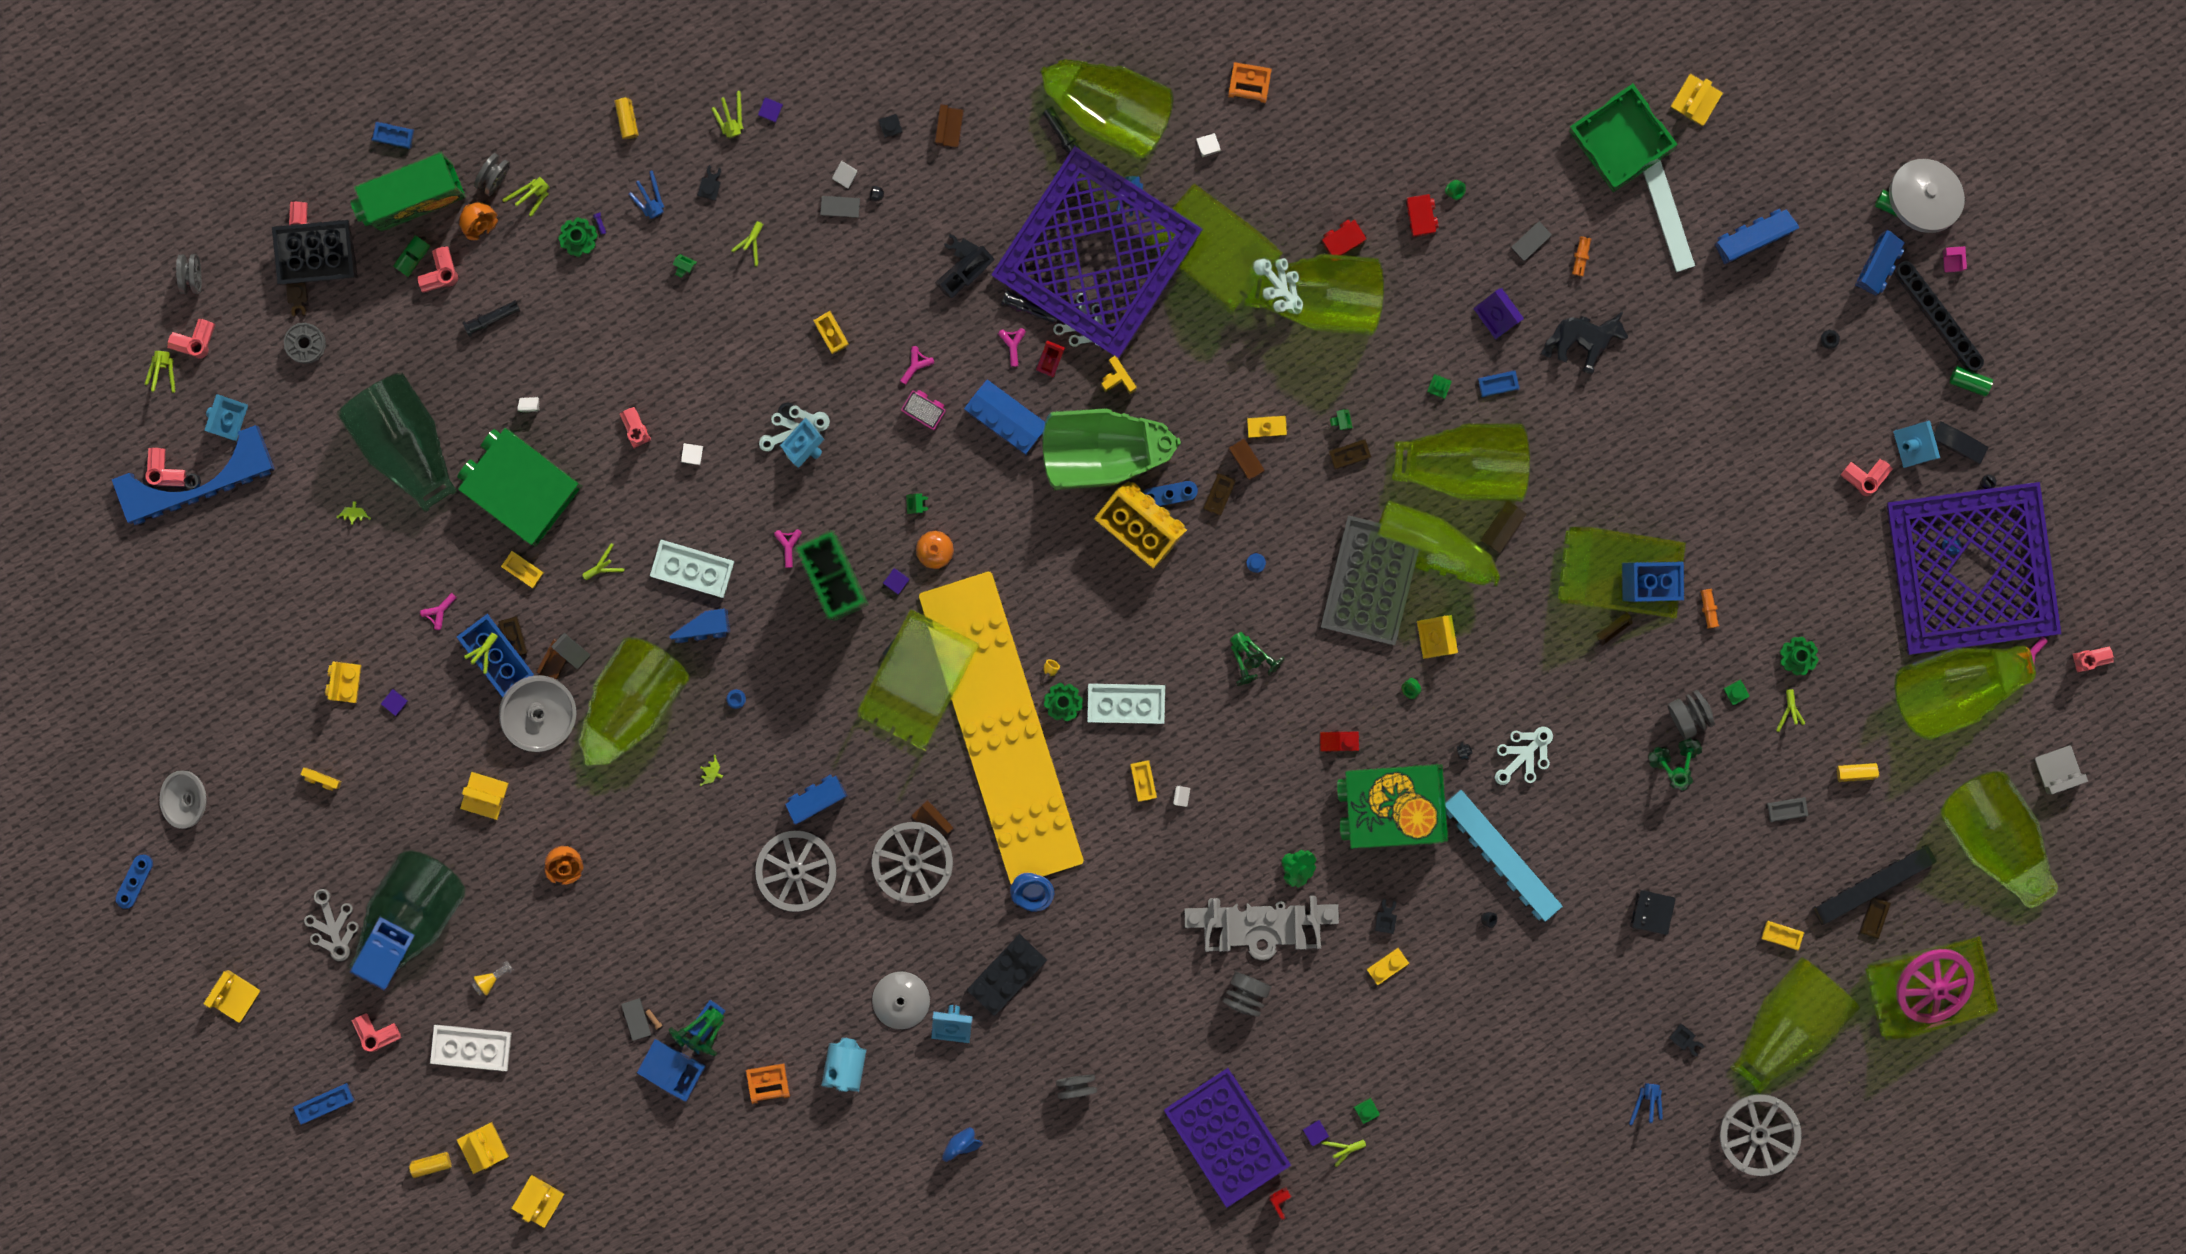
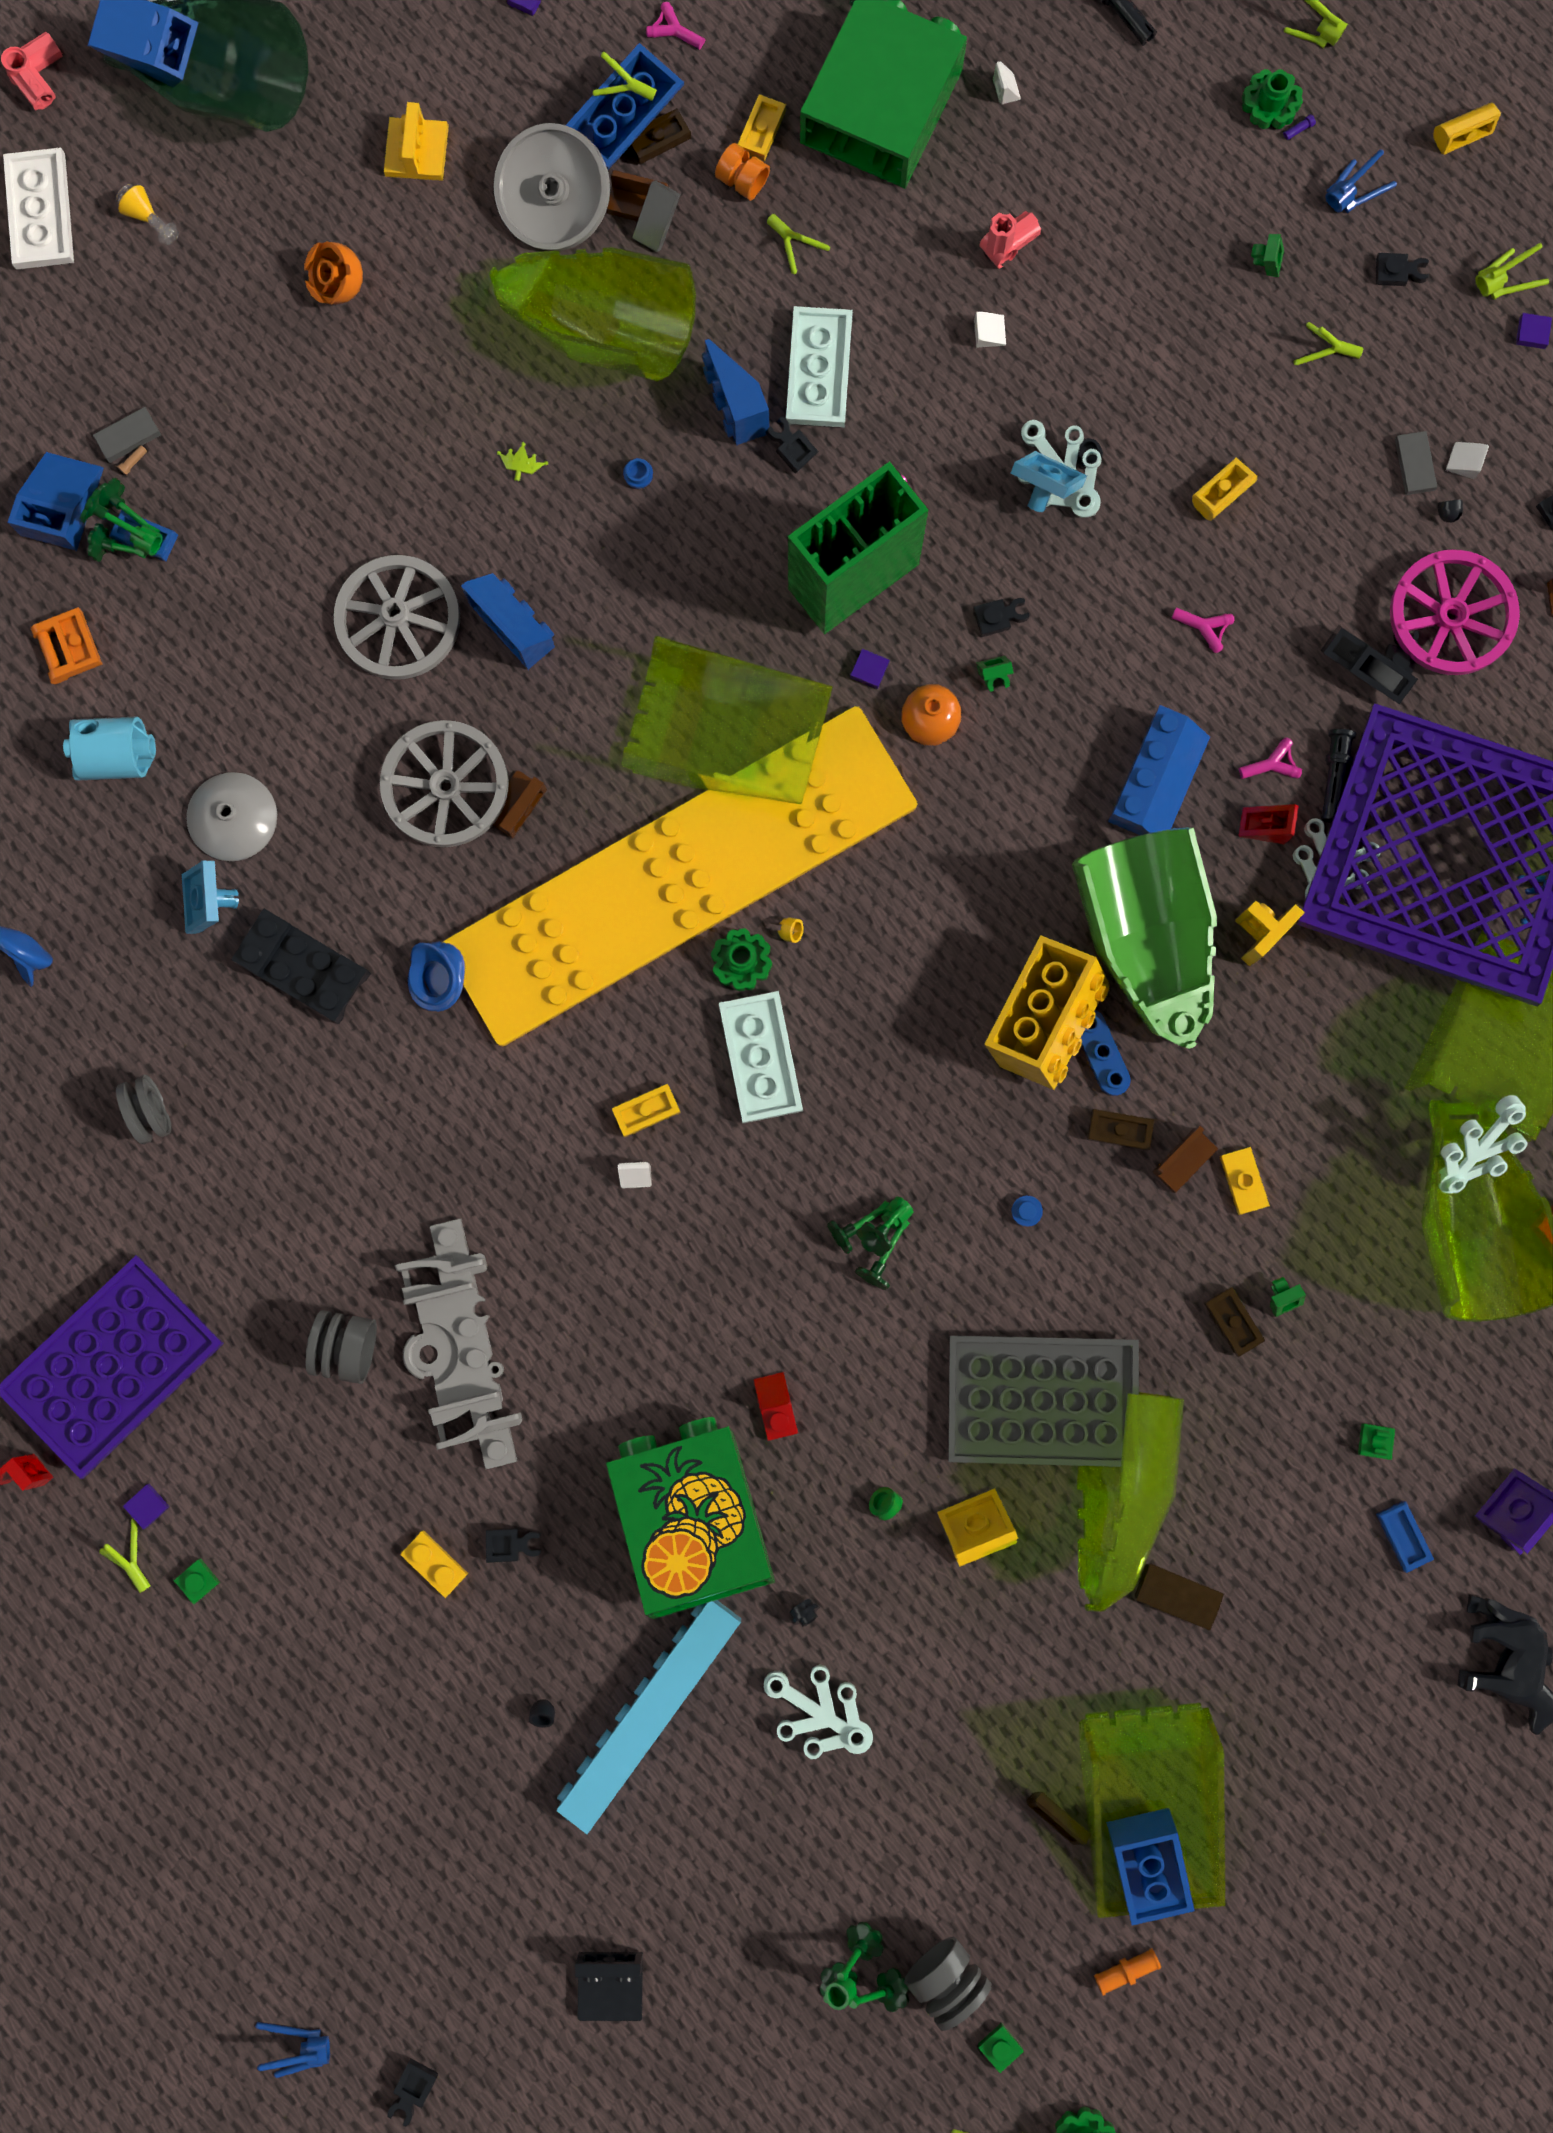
camera: 80 degrees right, 5 degrees down
(551, 589) = (739, 169): none -> orange wheel
(743, 596) = (794, 448): none -> black plate
(880, 495) = (996, 618): none -> black plate
(908, 212) = (1456, 607): none -> dark pink wheel
(924, 410) = (1141, 649): brick -> none
(1298, 867) = (560, 1385): green plant -> none
(1469, 462) = (1275, 1519): clear neon green windscreen -> none

